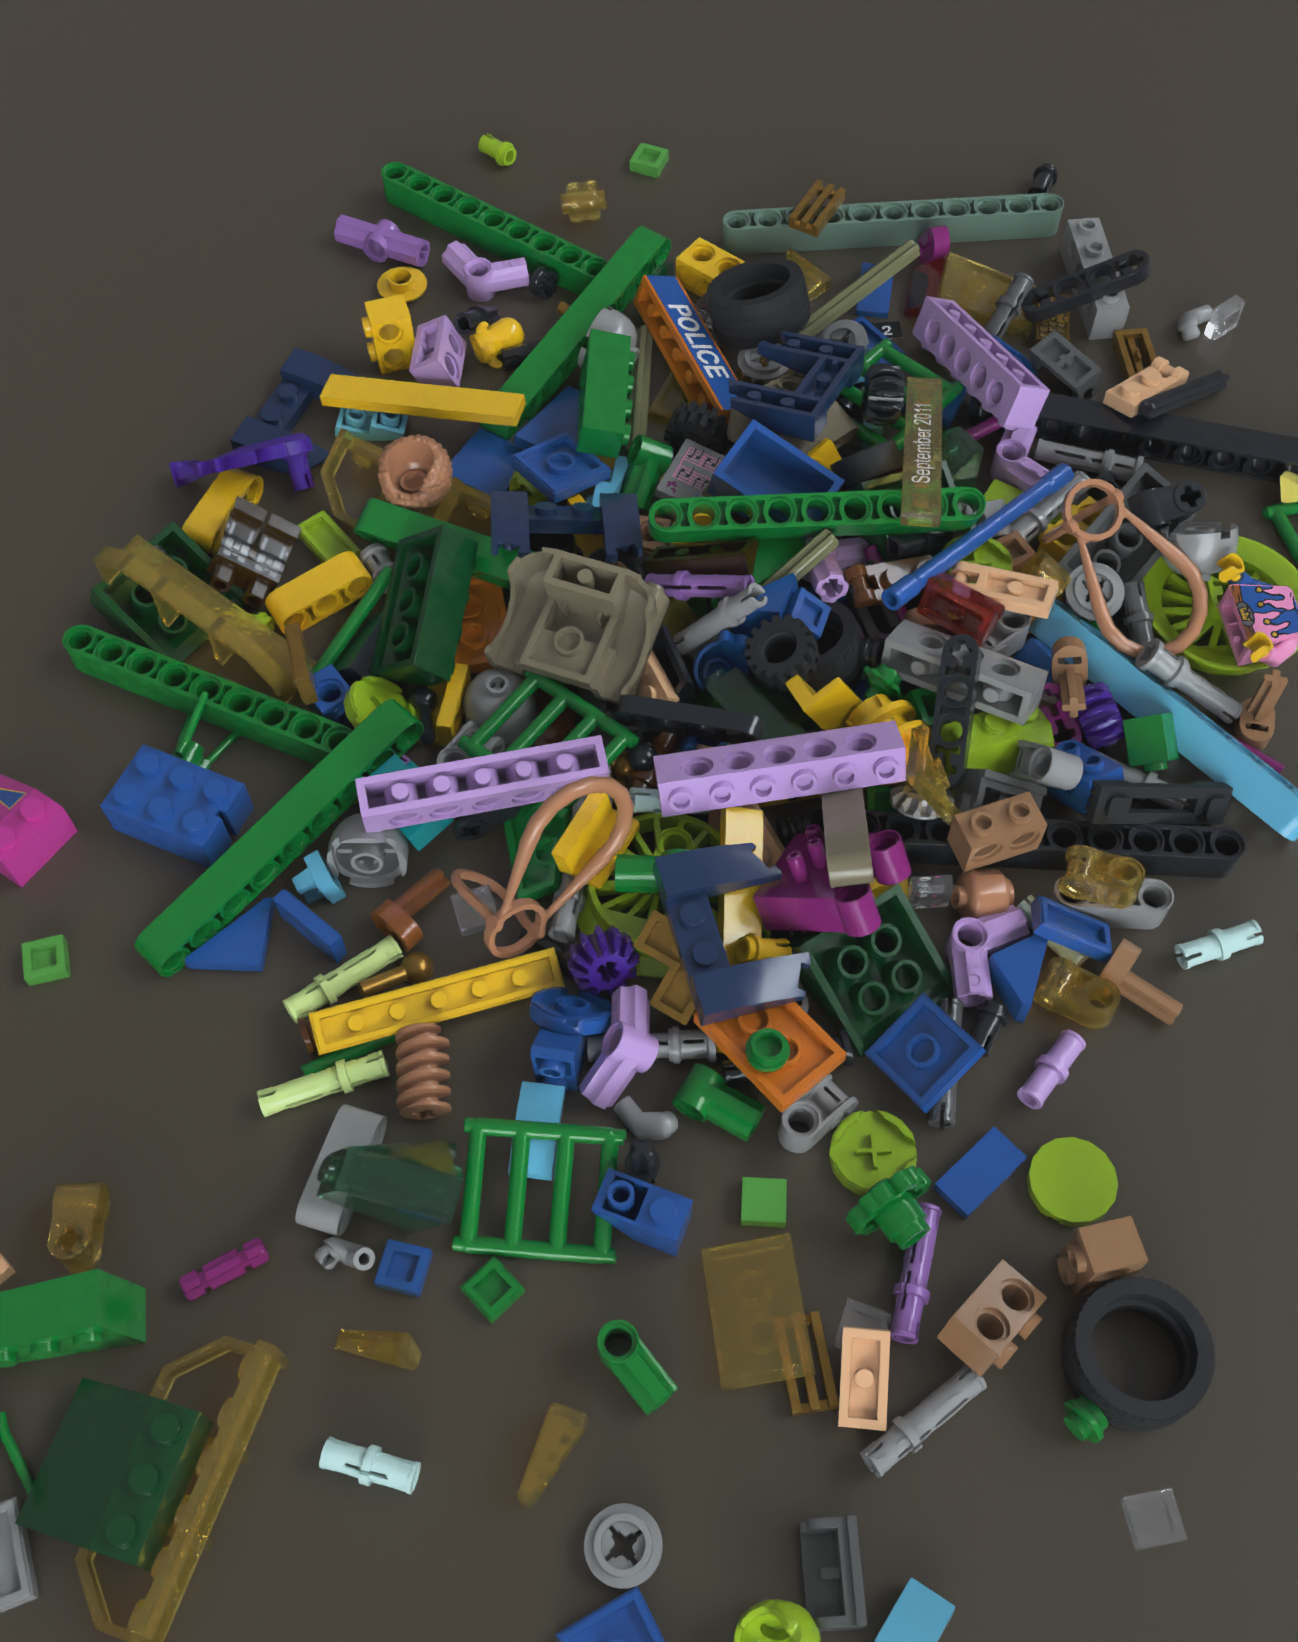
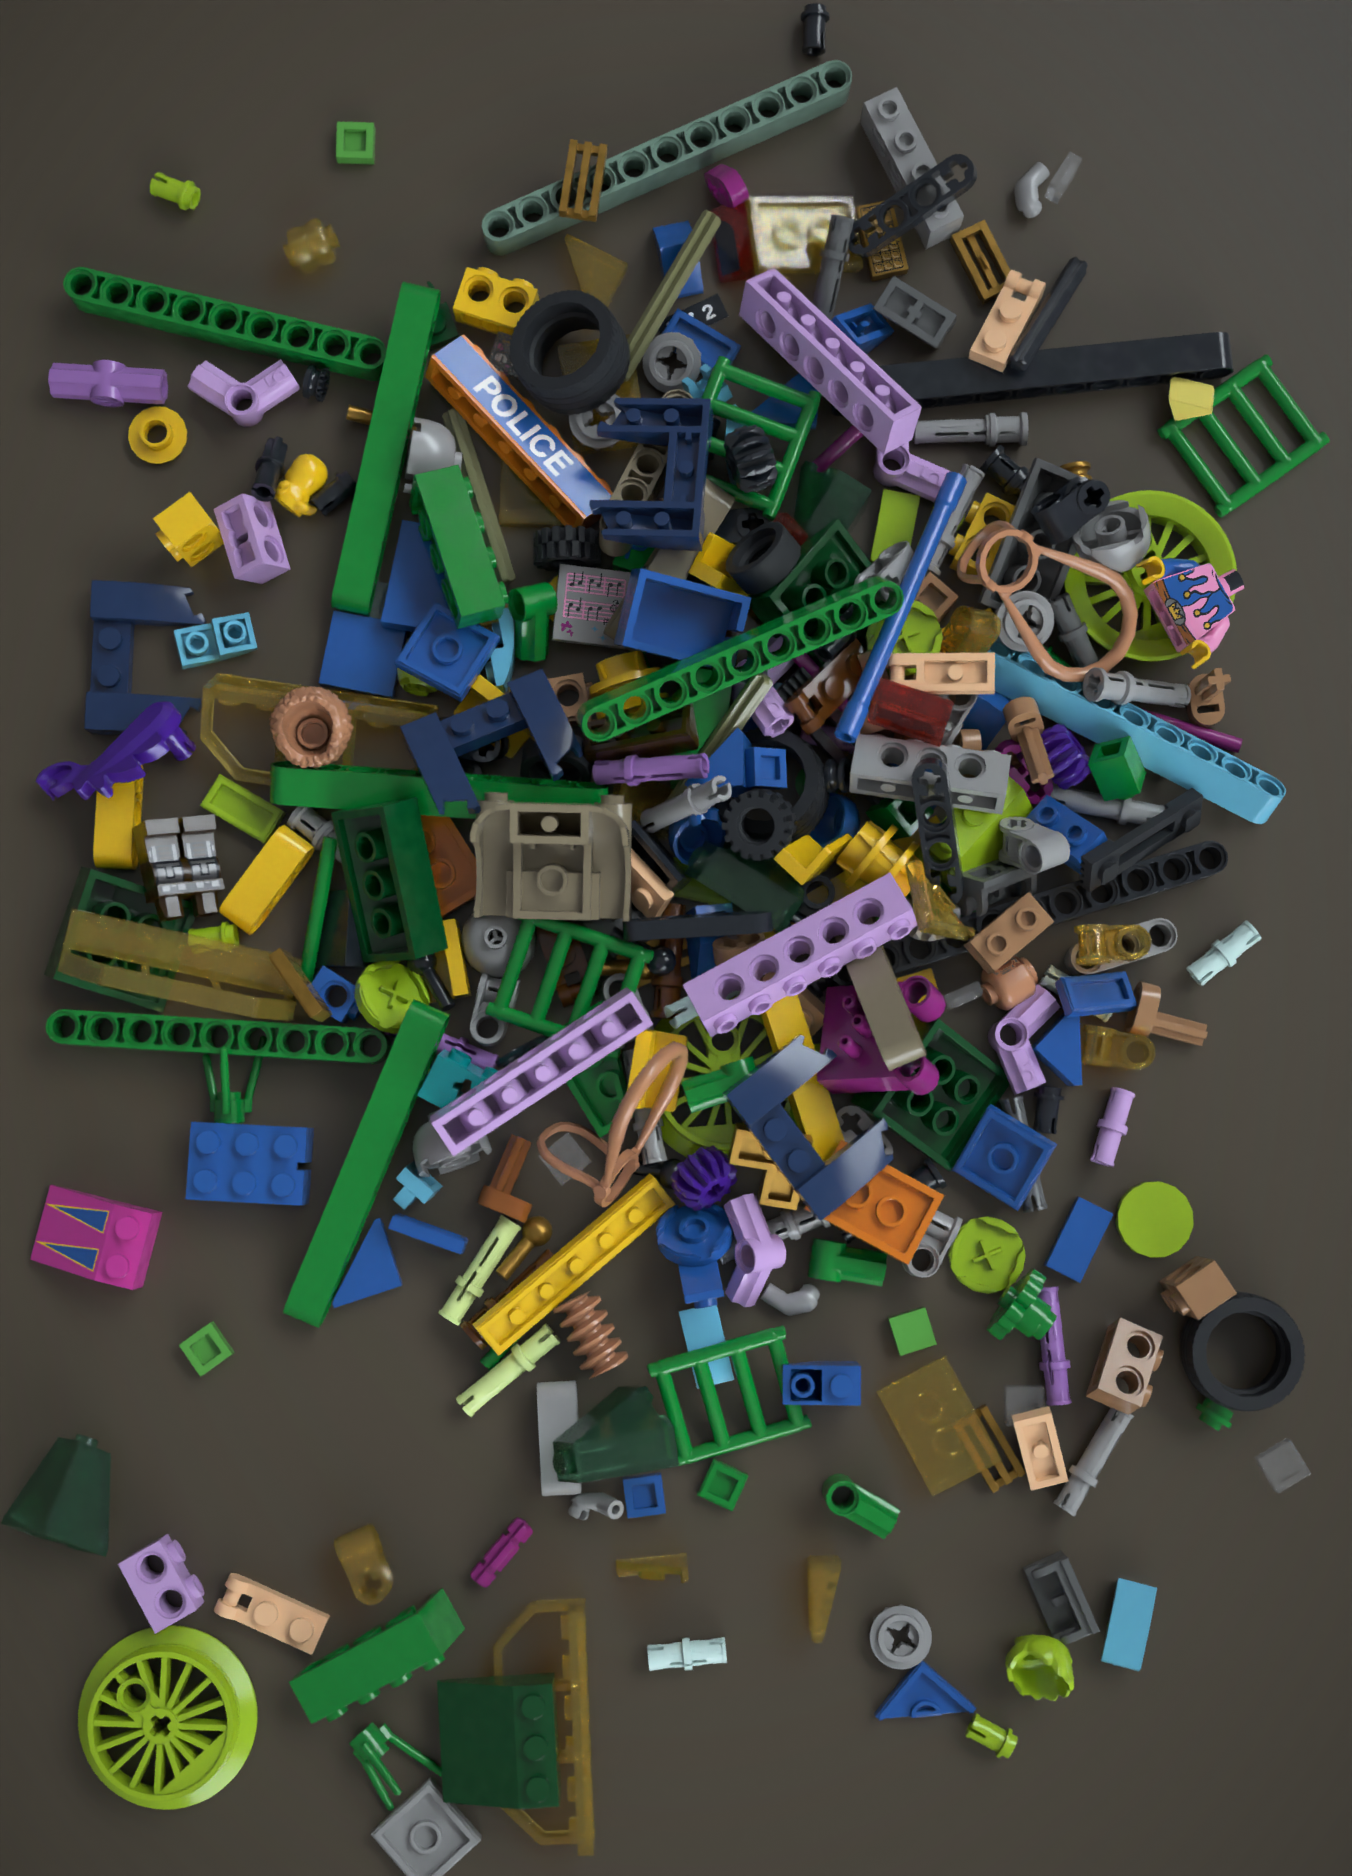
camera: 25 degrees left, 25 degrees up
(423, 400) = (265, 610): yellow tile -> none
(642, 1161) = (807, 1346): black axle -> none
(754, 948) = (834, 1125): yellow pin -> none
(767, 1050) = (880, 1223): green plate -> none
(883, 681) = (858, 809): green plant -> none
(922, 453) = (819, 540): clear yellow tile -> none

